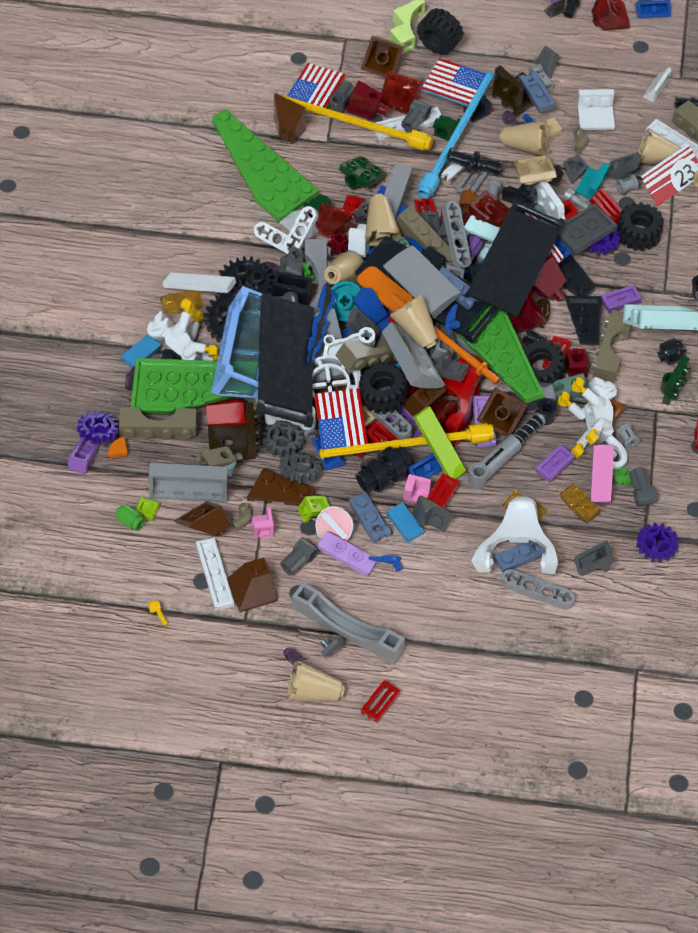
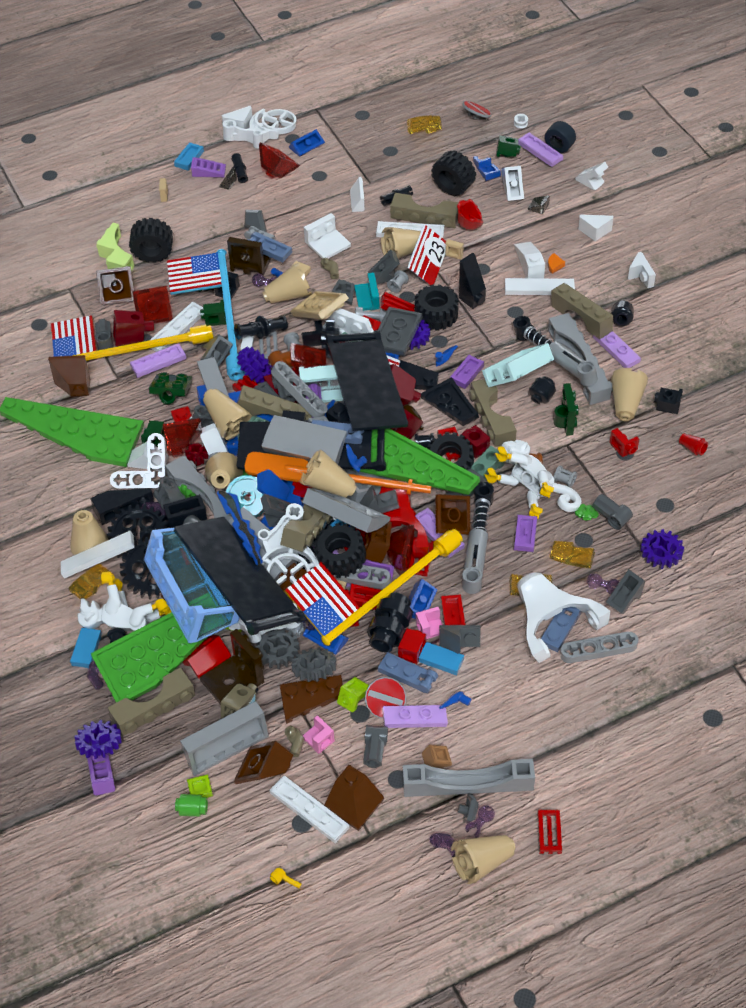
camera: 30 degrees left, 5 degrees down
(118, 448) = (130, 748): orange tile -> none
(203, 259) = (85, 532): none -> tan cone
(242, 245) = (111, 502): none -> black slope
(340, 594) = (436, 756): none -> medium nougat slope
(340, 659) = (483, 817): none -> clear purple arm
(369, 144) = (158, 360): none -> lavender plate
(387, 497) = (411, 645): none -> red brick
(417, 112) = (181, 316): dark grey piece -> none
(420, 163) = (217, 348): none -> dark grey slope
(439, 443) = (422, 569): lime tile -> none
(442, 192) = (253, 364): none -> dark purple gear
(580, 536) = (595, 581): none -> clear purple arm
(602, 473) = (574, 517): bright pink slope -> none
(612, 275) = (441, 358): none -> blue bar
(685, 220) = (471, 284): none -> black slope

